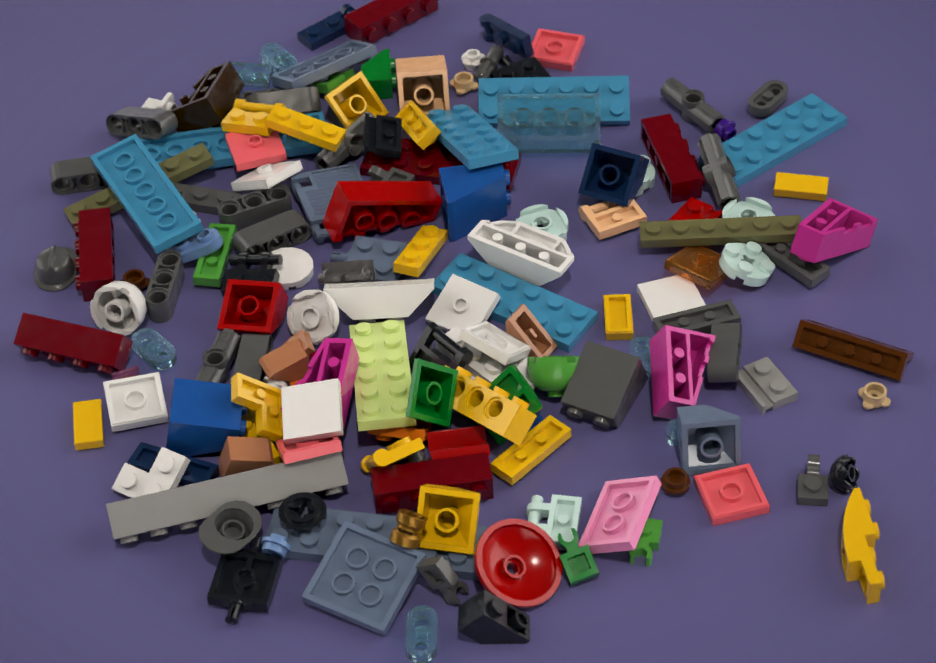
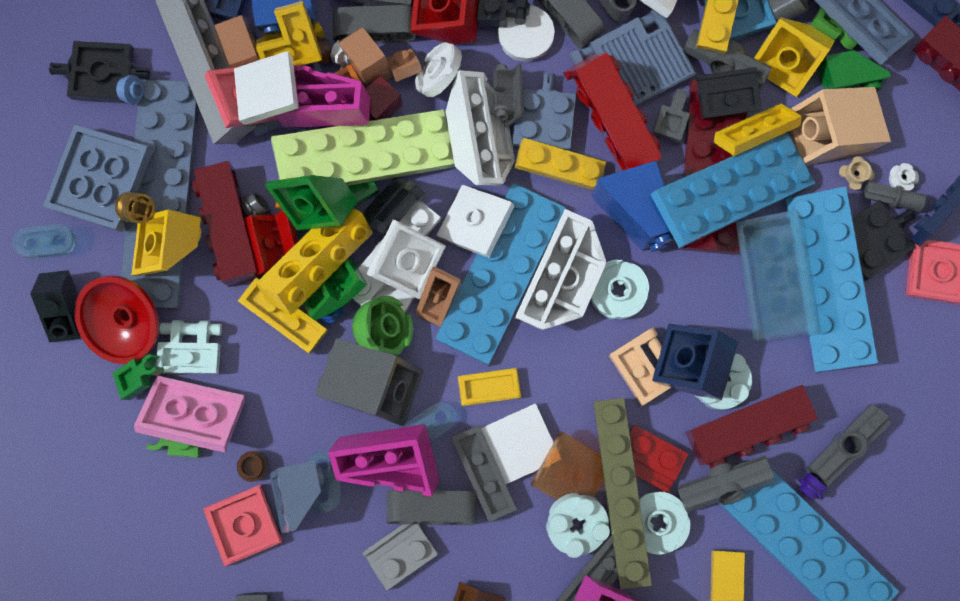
camera: 80 degrees right, 35 degrees up
(230, 527) = (142, 43): dark grey piece -> none
(296, 505) = (162, 97): black gear -> none
(394, 453) = (245, 188): yellow plate -> none
(441, 576) = (95, 249): dark grey plate -> none
(767, 98) = (879, 535): dark grey plate -> none

